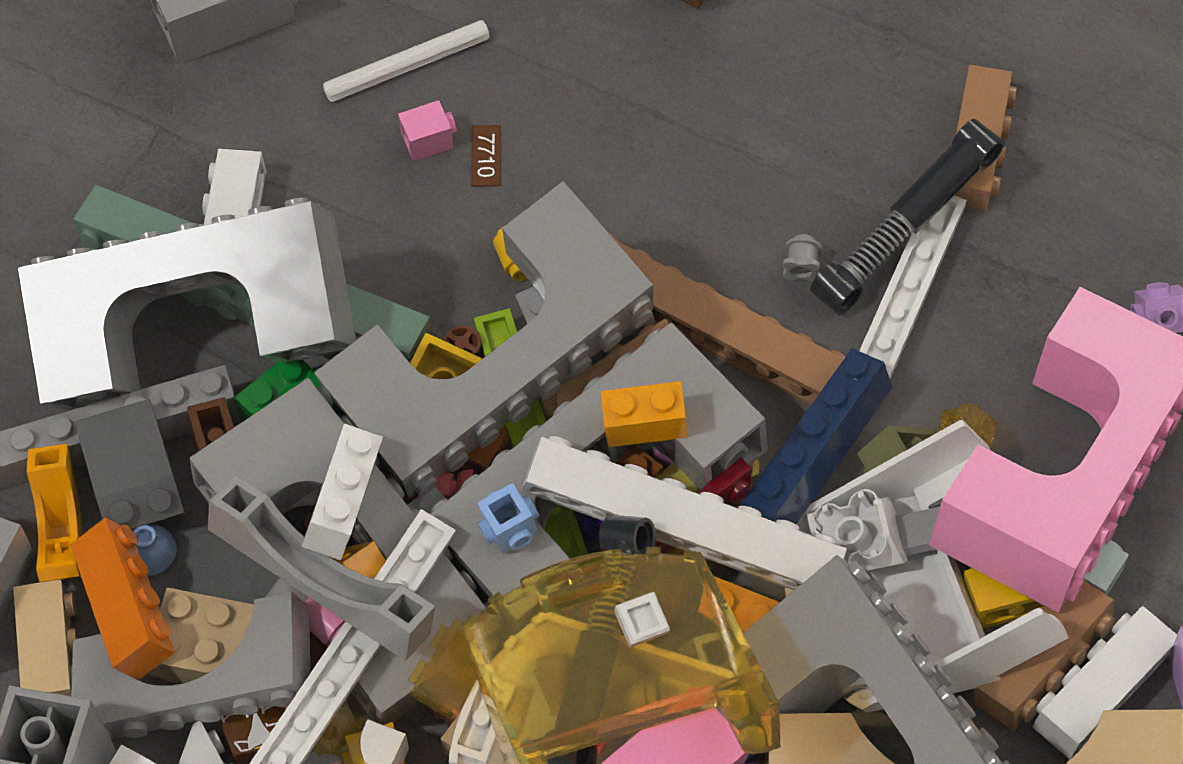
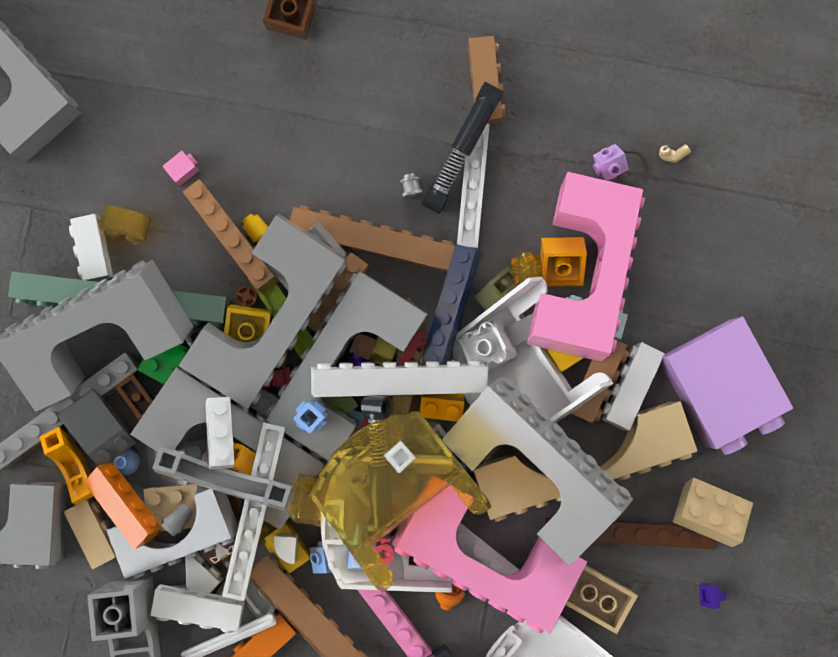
camera: 20 degrees left, 25 degrees up
(206, 644) = (176, 520): none -> light grey cone
(298, 175) = (125, 223): none -> clear yellow brick
(406, 61) = (153, 124): white axle -> none
(471, 245) = (230, 236): none -> medium nougat brick
(486, 155) = (218, 170): reddish brown sticker -> none
(644, 414) = (363, 335): light orange brick -> none
(1036, 435) = (563, 261): none -> light orange slope

